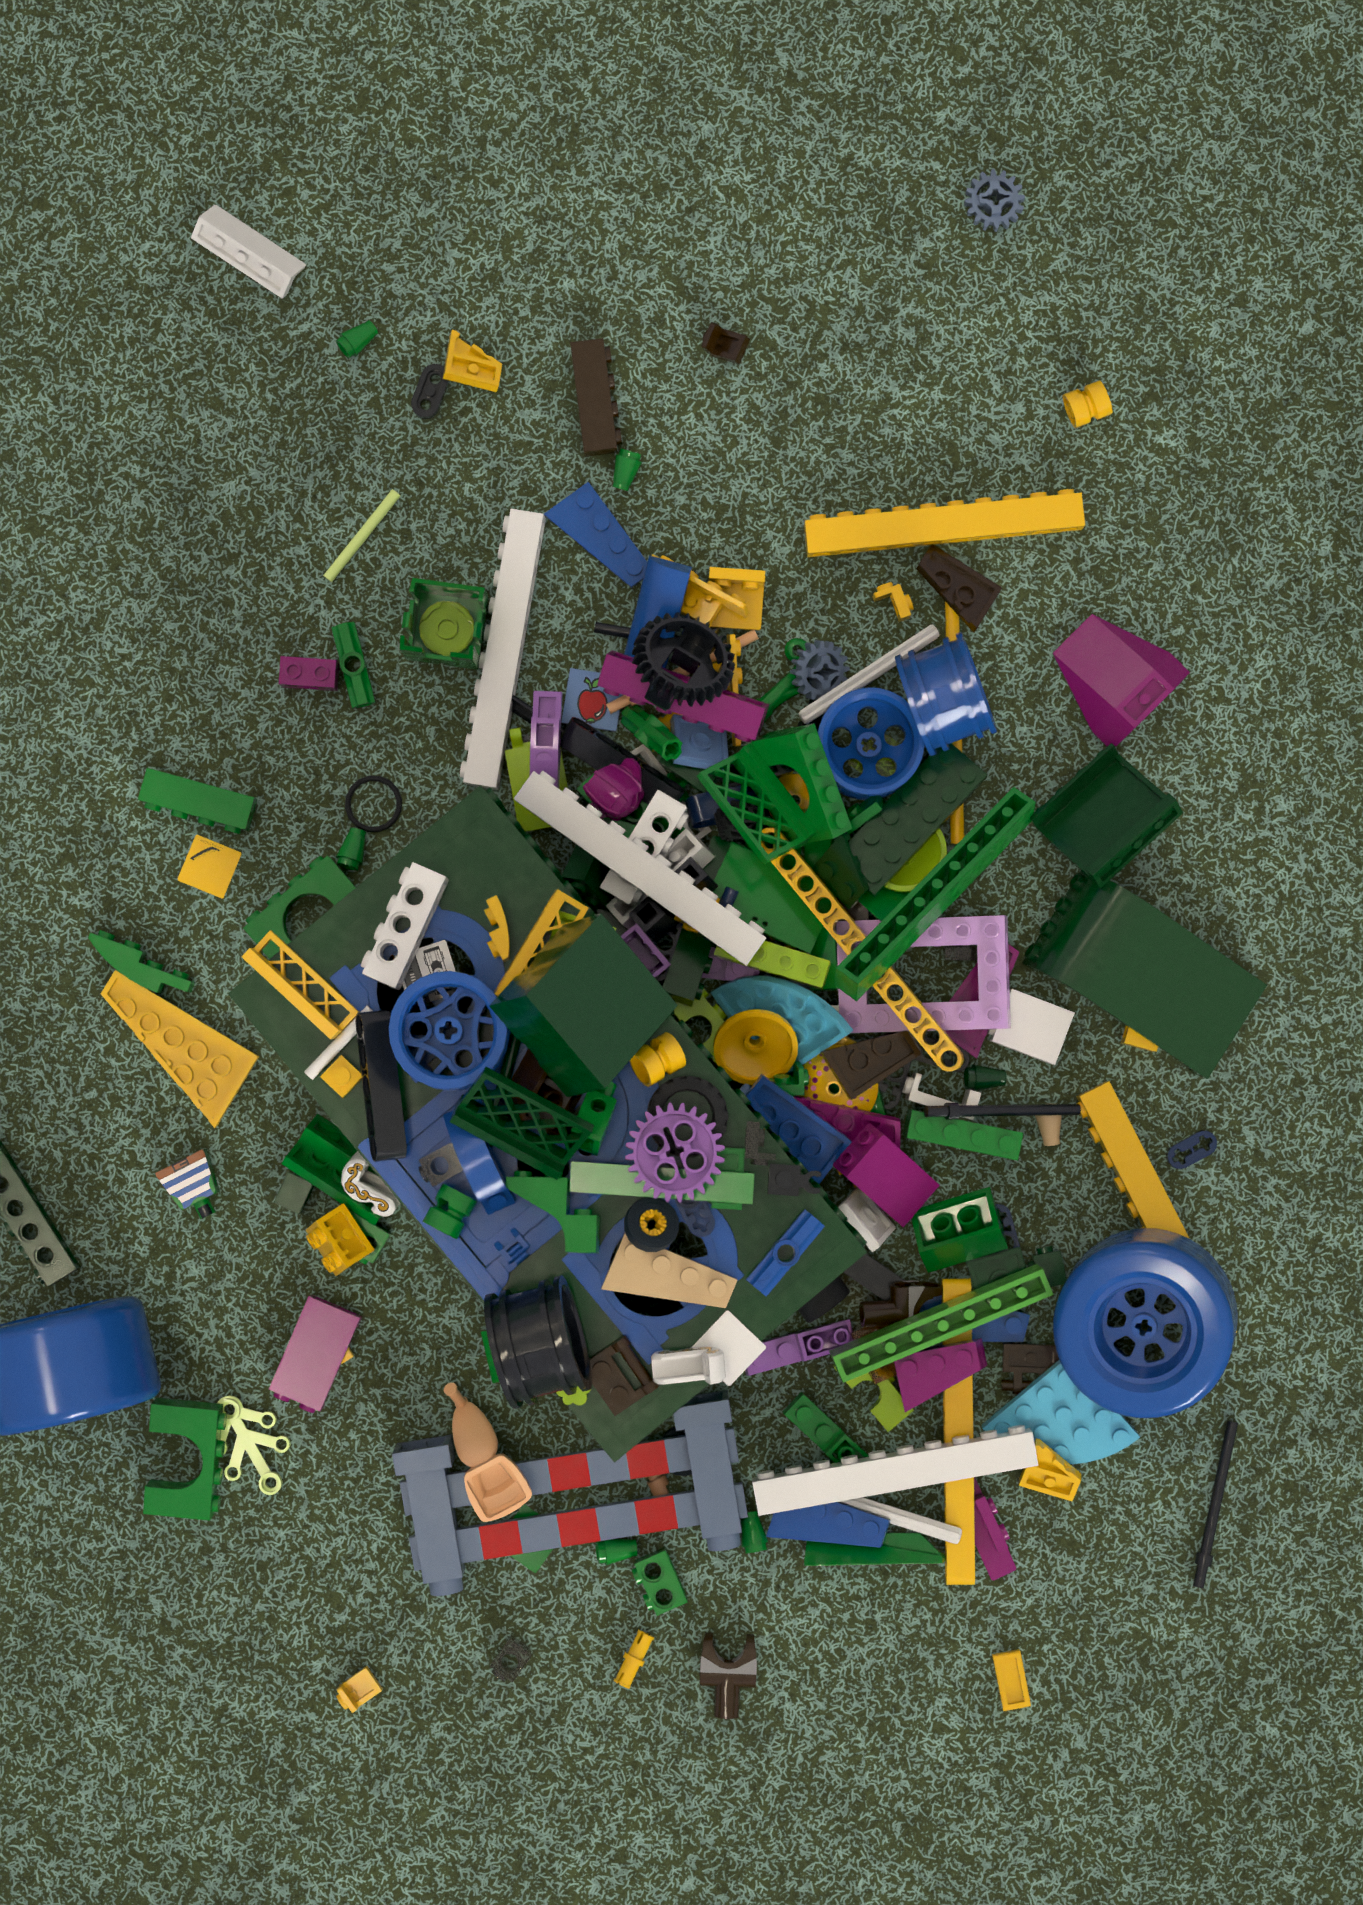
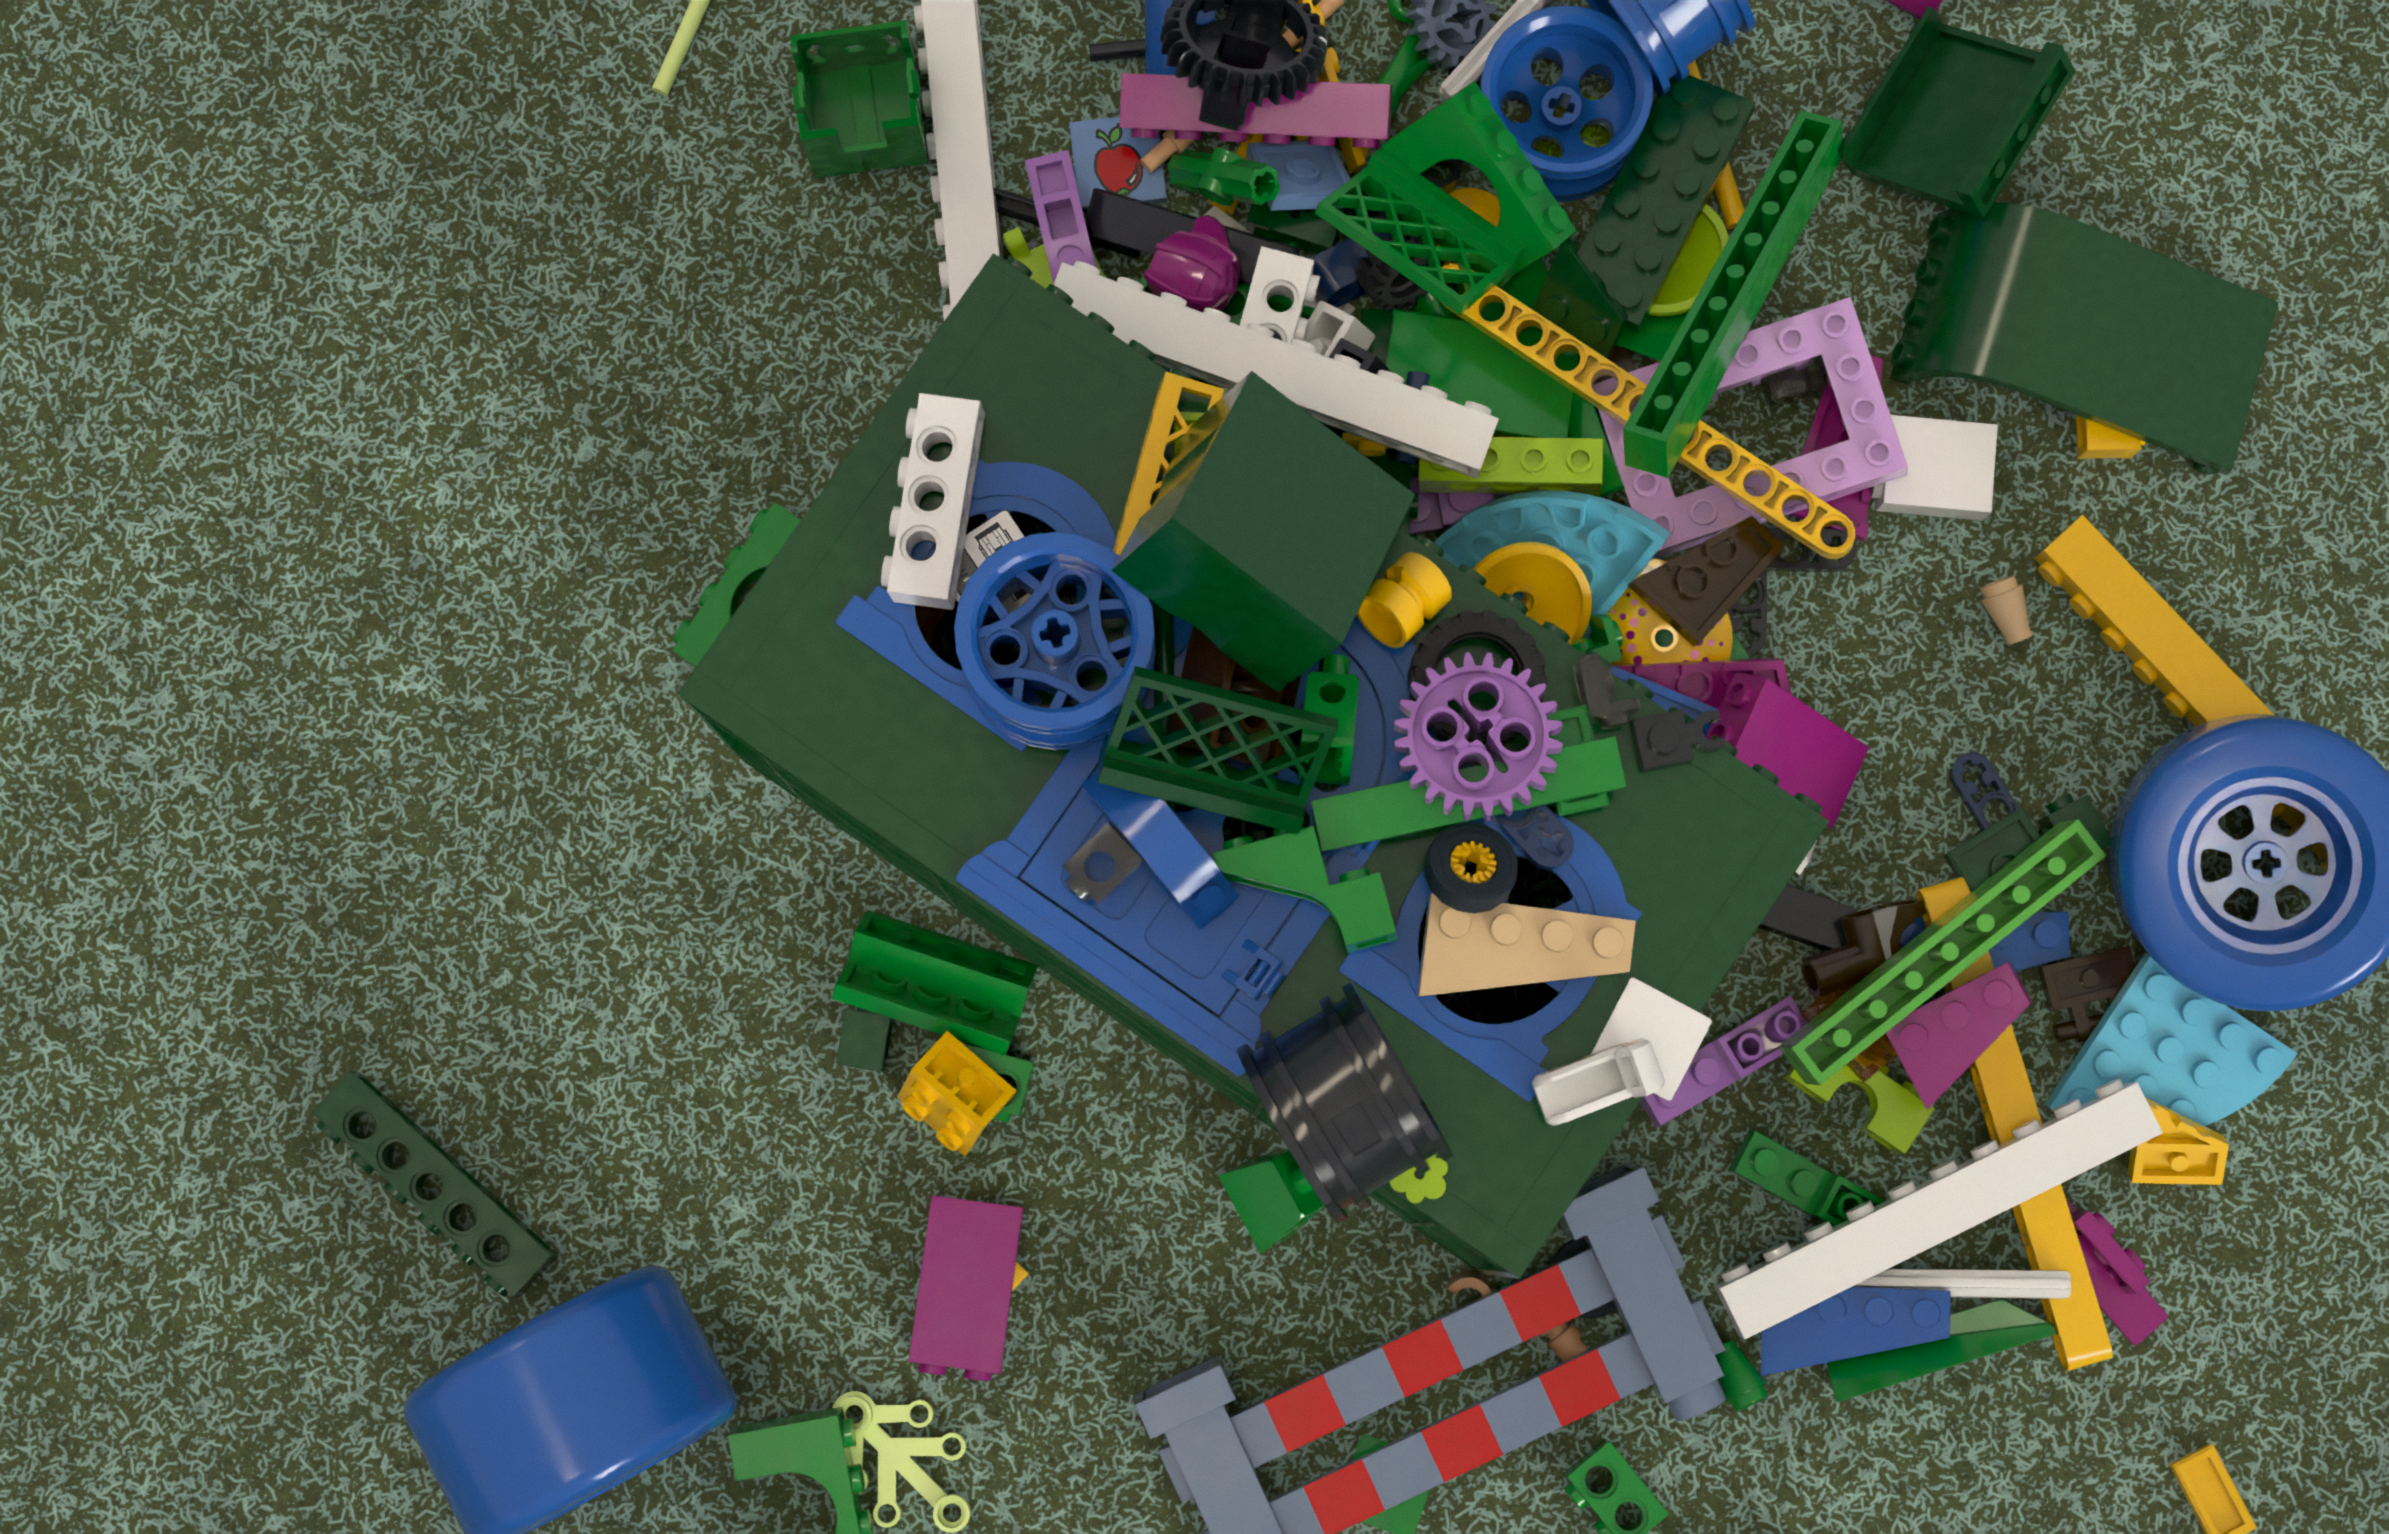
camera: 15 degrees left, 5 degrees down
(129, 960) = (509, 753): green slope -> none
(191, 1052) = (648, 869): yellow wing -> none
(191, 1182) = (698, 1070): torso -> none
(198, 800) = (548, 476): green brick -> none
(209, 866) = (594, 576): yellow sticker -> none
(292, 992) = (775, 655): yellow fence -> none
(308, 673) = (669, 237): magenta brick -> none
(333, 1049) = (880, 719): white bar -> none
(341, 1076) = (899, 772): yellow plate -> none
(348, 648) = (723, 184): green piece -> none
(352, 850) = (807, 483): green cone -> none
(367, 1187) = (976, 996): white animal -> none
(370, 828) = (834, 449): black piece -> none
(380, 1087) = (967, 766): black beam -> none
(446, 628) = (859, 104): lime tile -> none
(449, 1211) = (1136, 937): green wheel -> none
(493, 1481) = (1309, 1401): light nougat piece -> none
(500, 937) = (1093, 476): yellow slope -> none
(612, 1382) = (1480, 1146): dark brown plate -> none
(615, 1550) = (1528, 1465): green cone -> none
(799, 1237) = (1714, 826): blue piece -> none
(824, 1300) = (1744, 975): black tyre -> none
(865, 811) = (1584, 210): green plate -> none
(912, 1094) = (1838, 621): white panel -> none
(953, 1111) = (1865, 615): black bar -> none
(958, 1230) = (1920, 808): green slope -> none
(963, 1135) = (1931, 650): green arch -> none
(982, 1078) = (1882, 567): dark green cone -> none
(1193, 1156) = (2229, 581): dark blue beam -> none

